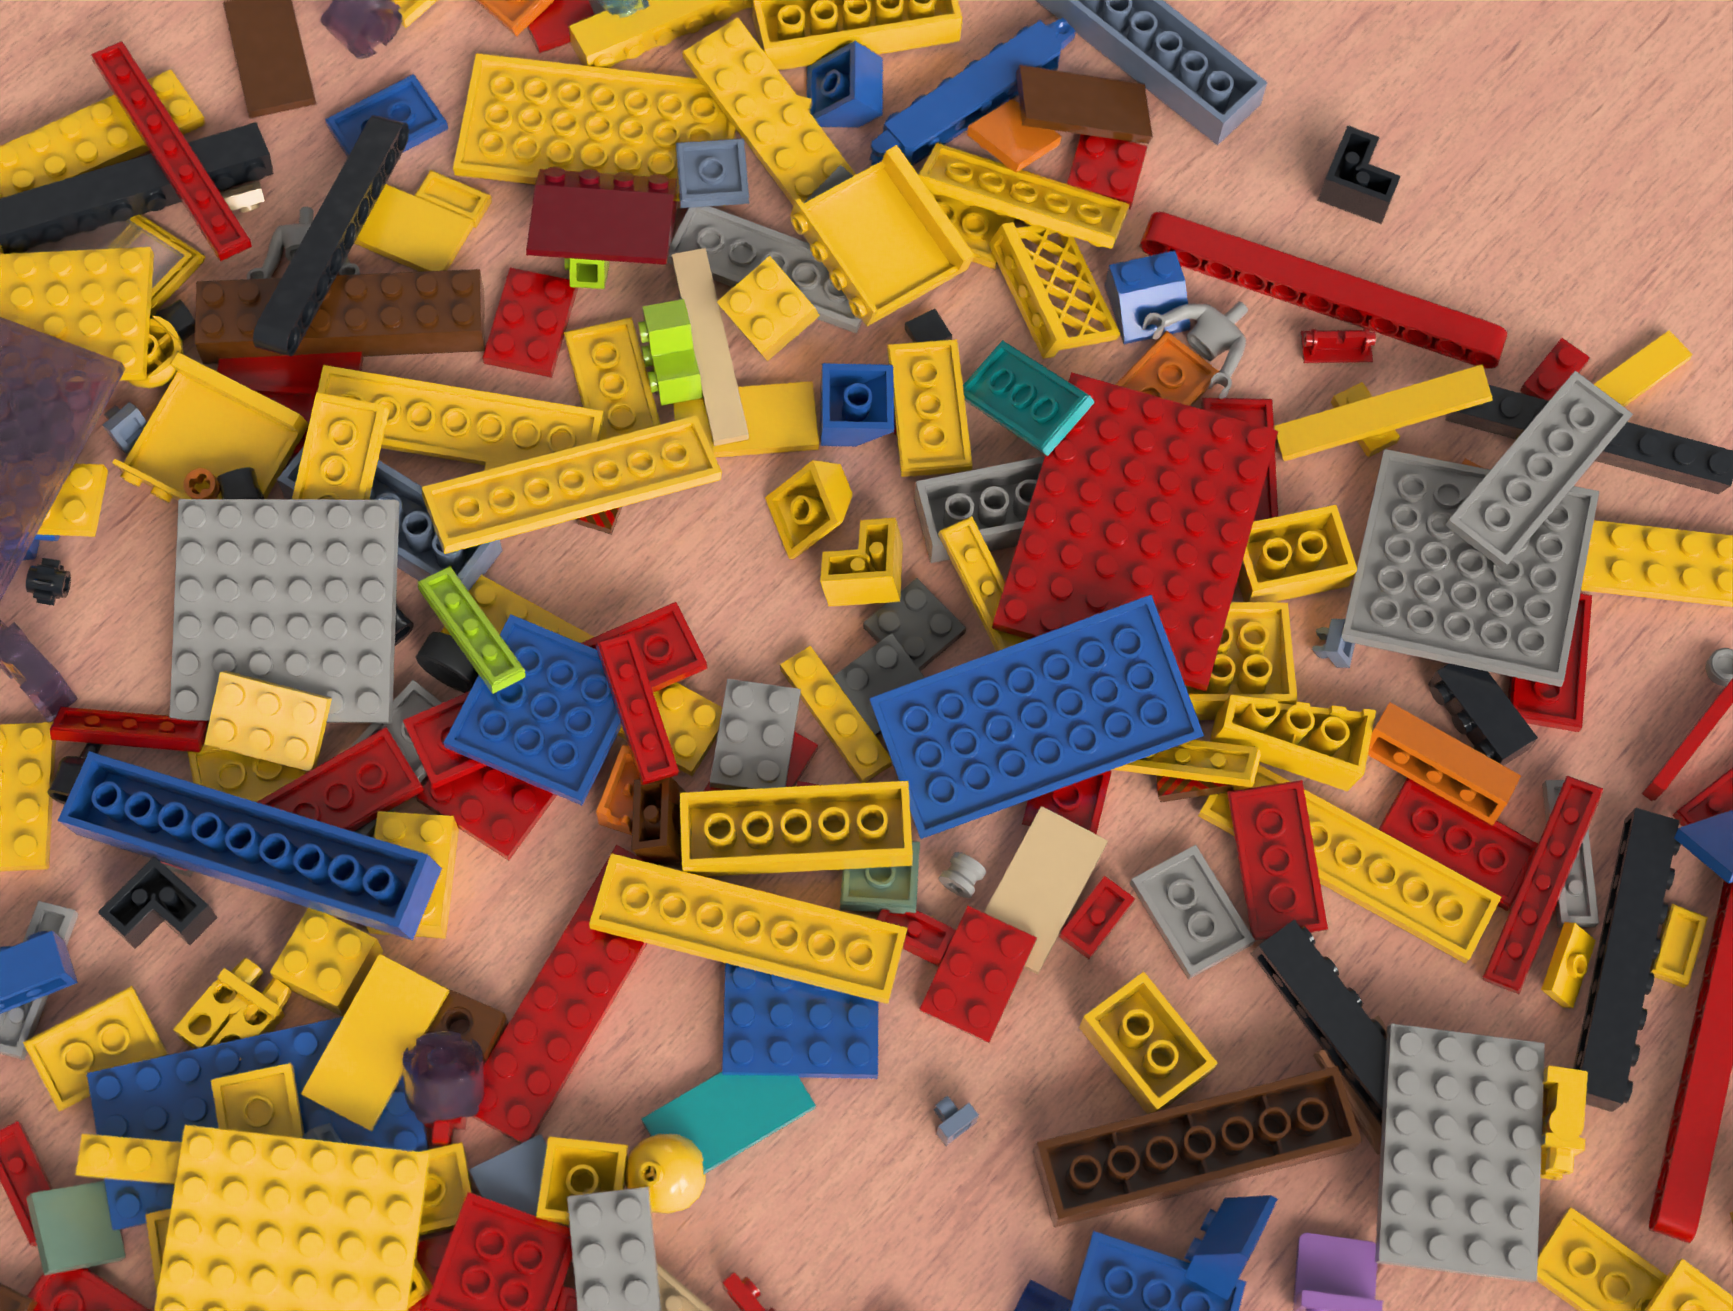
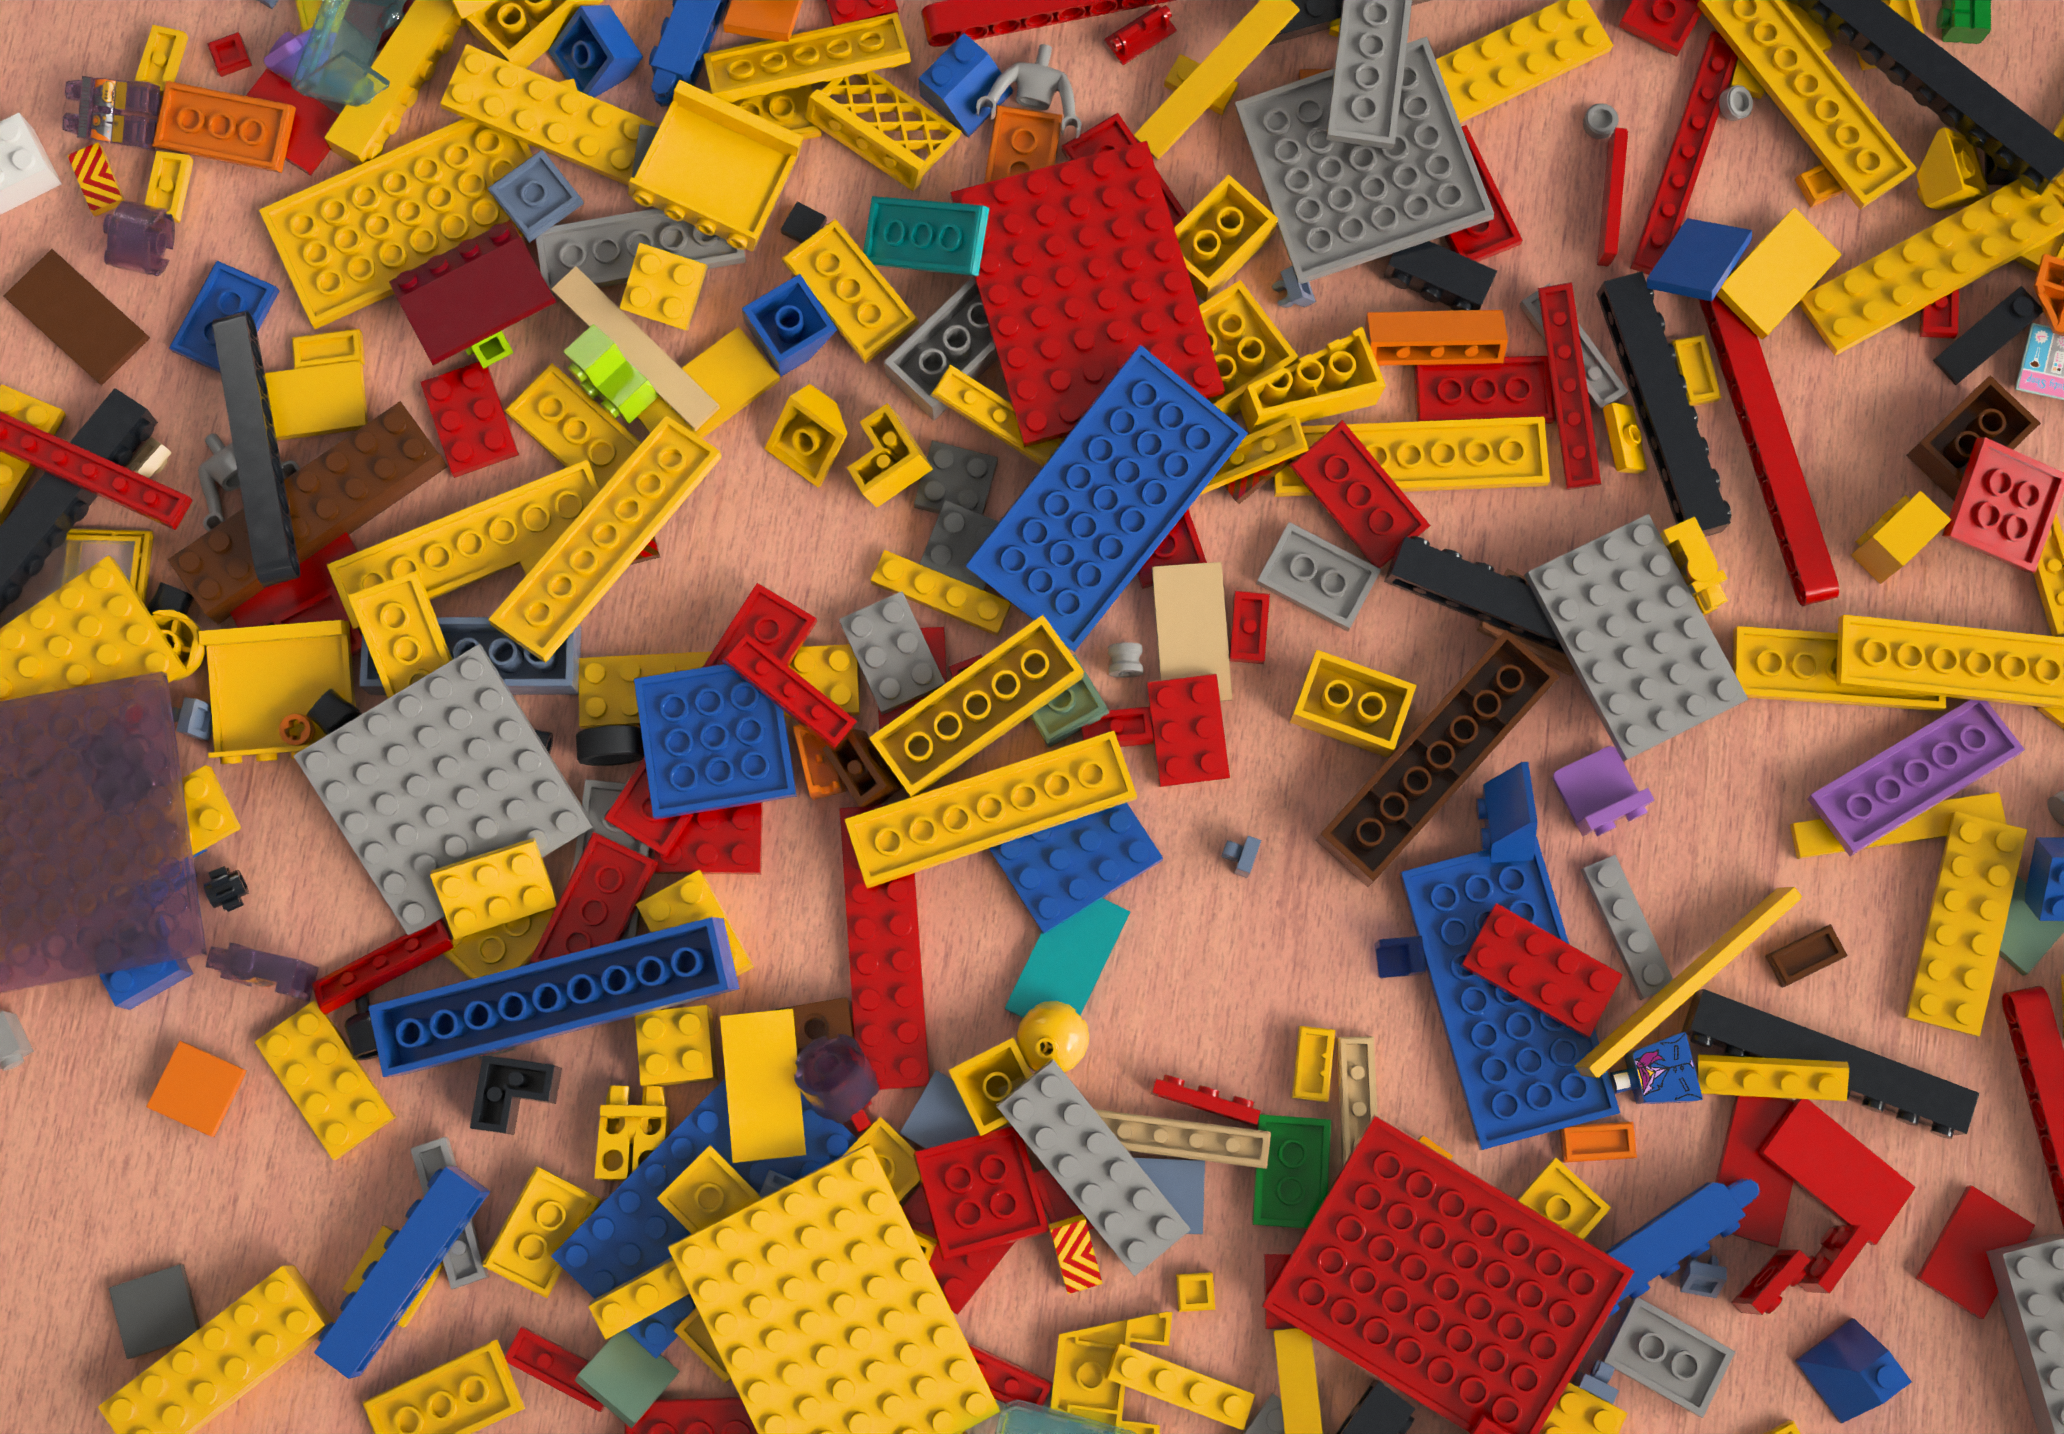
camera: 30 degrees left, 10 degrees up
(471, 629) = (612, 711): lime tile -> none

